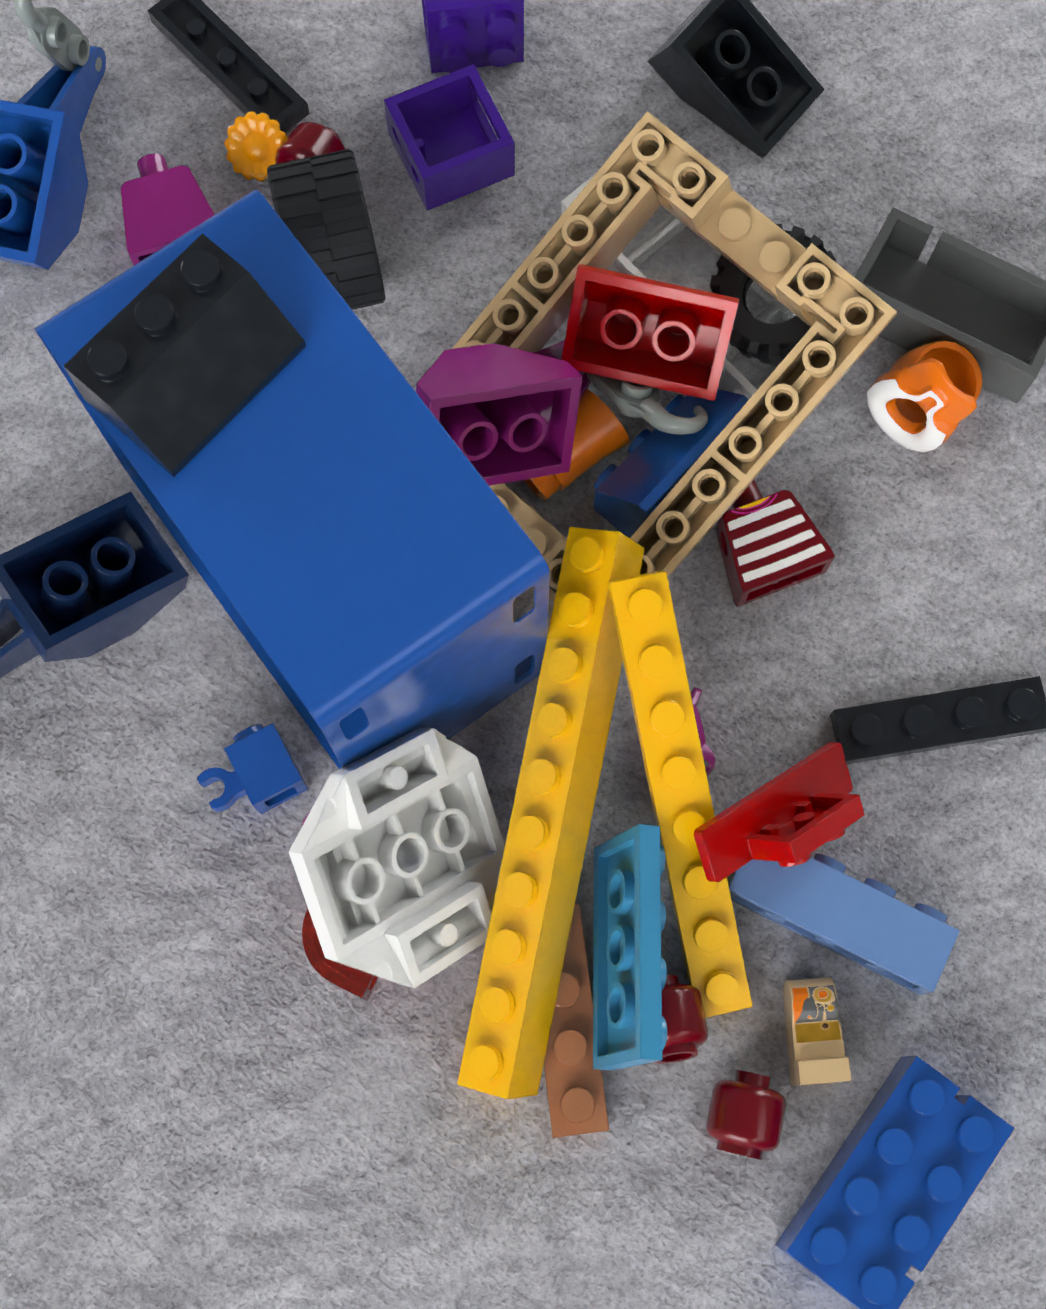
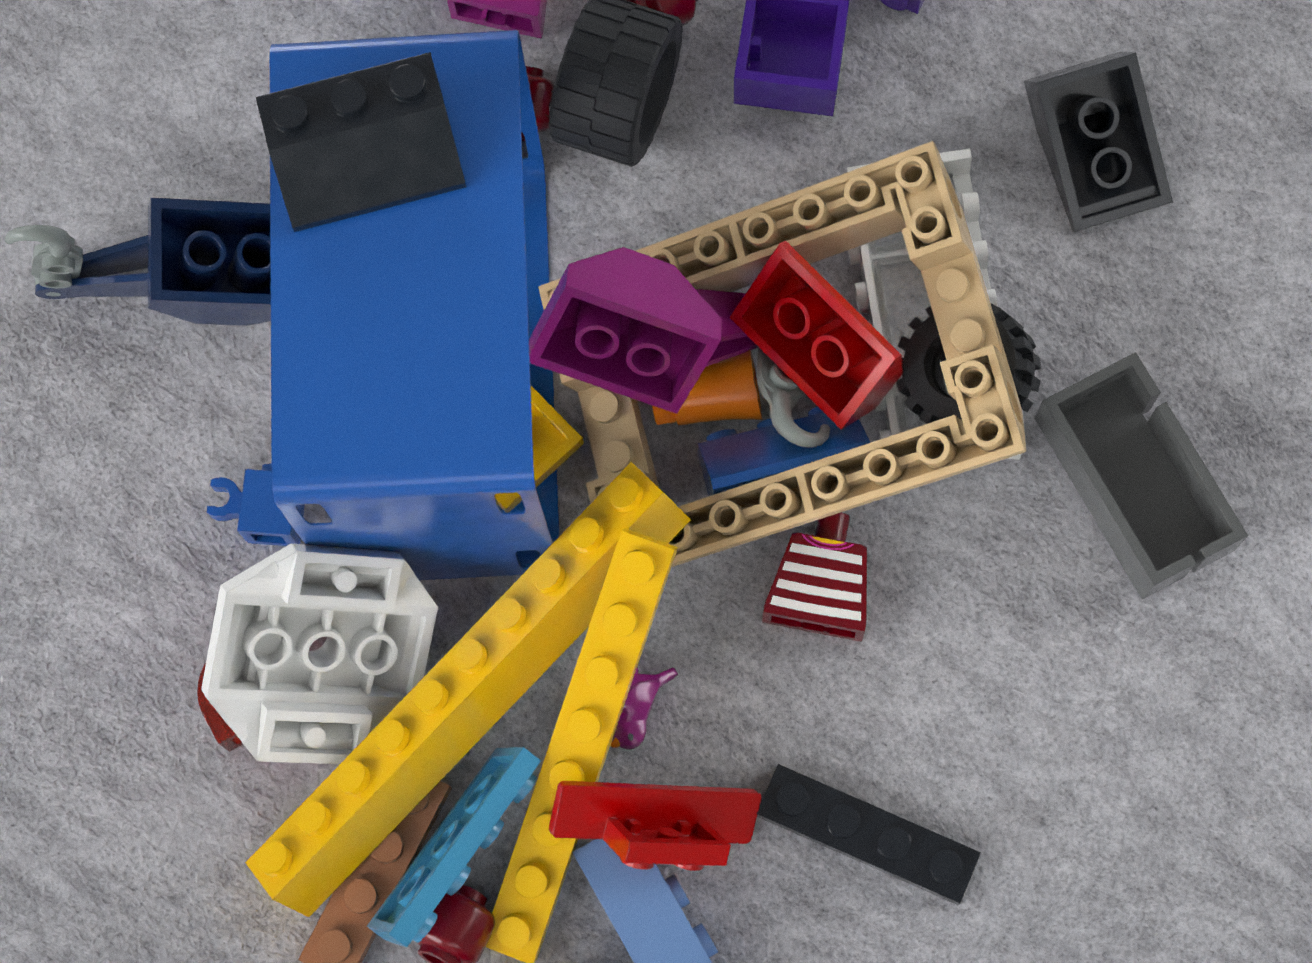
camera: 40 degrees right, 0 degrees up
(926, 395) = (1054, 539): orange piece -> none

